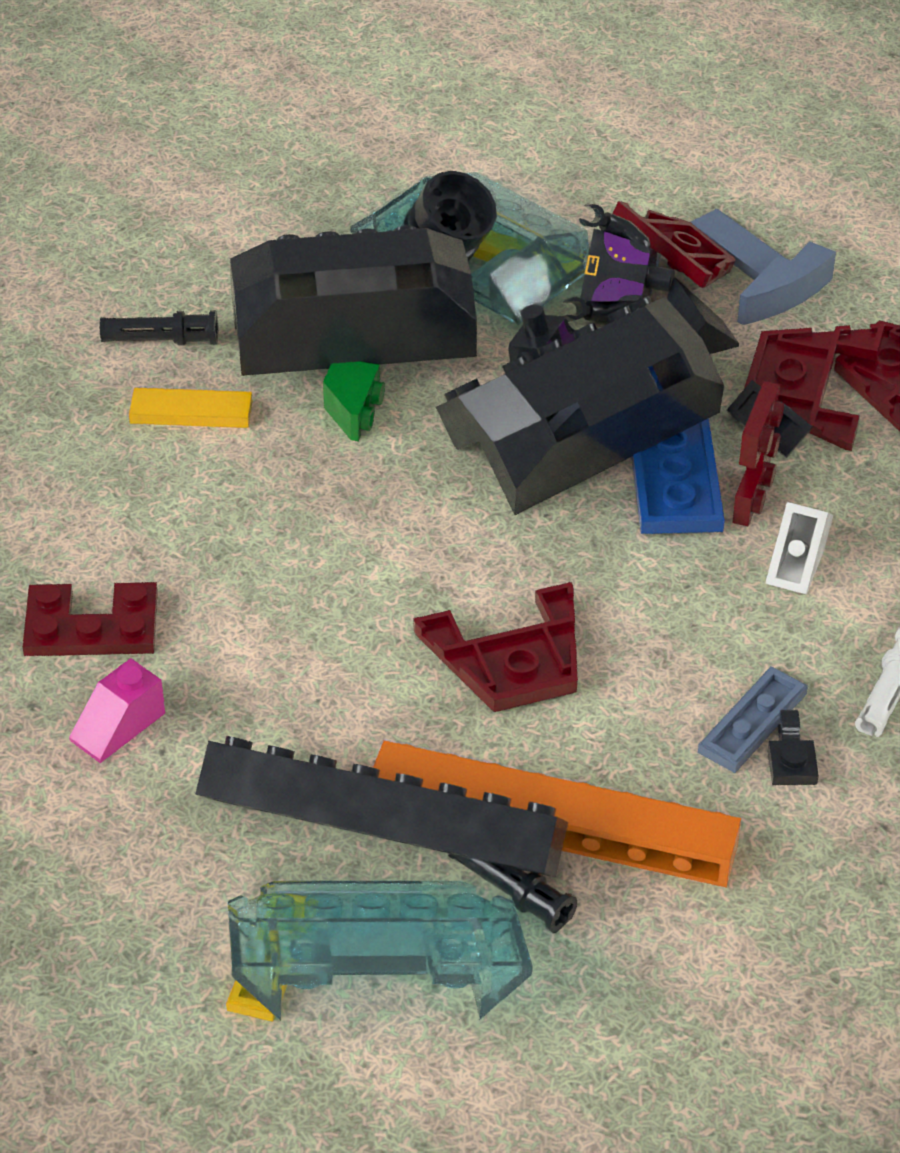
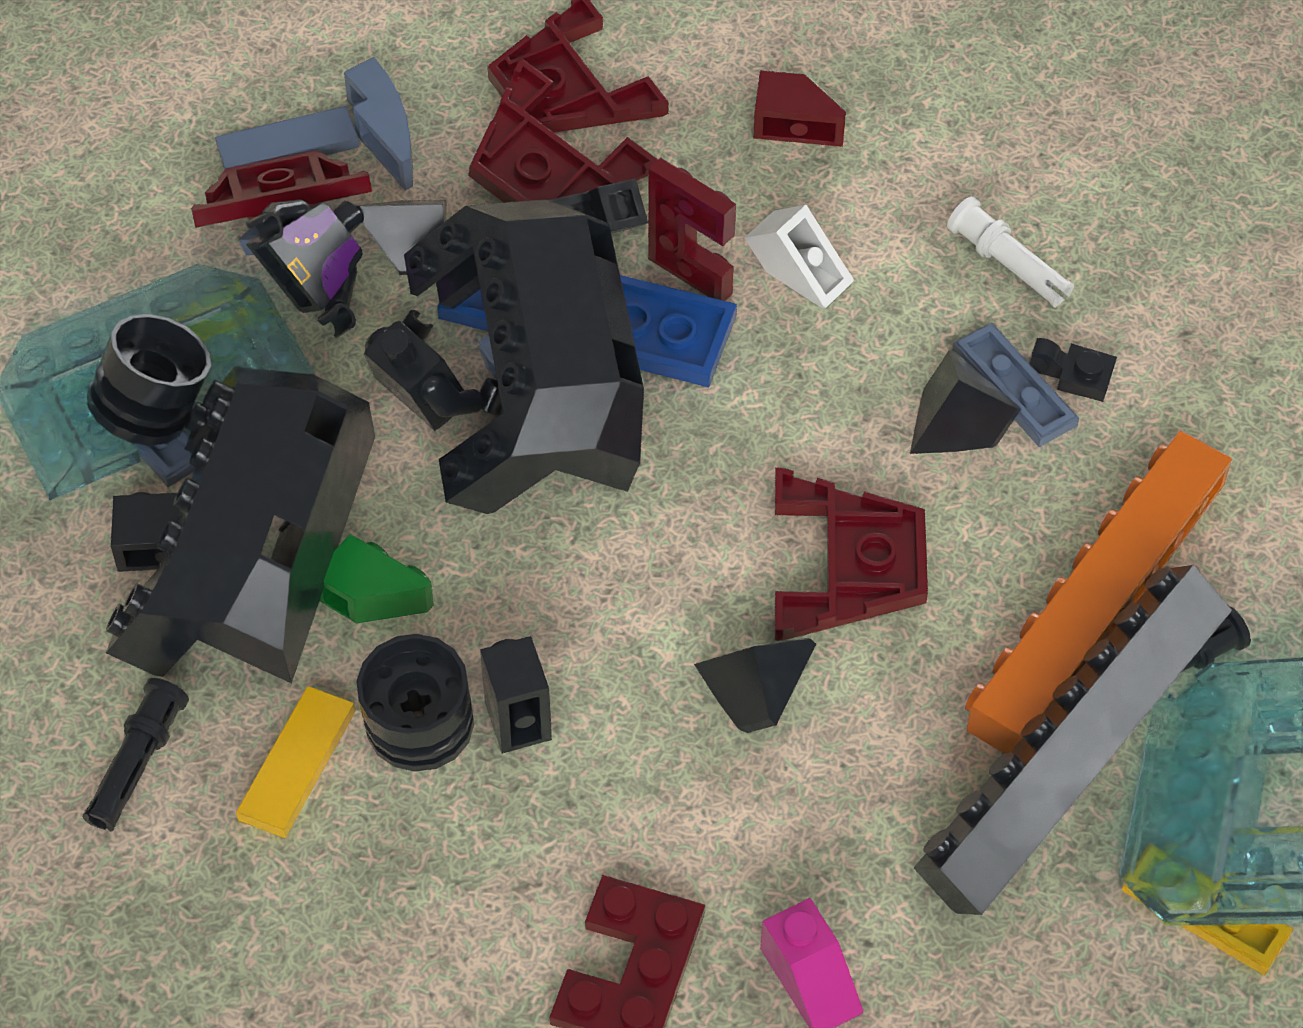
camera: 70 degrees left, 10 degrees up
(247, 435) = (409, 677): none -> black wheel
(276, 482) = (516, 694): none -> black brick
(364, 620) = (757, 681): none -> black slope
(696, 681) = (960, 410): none -> black slope

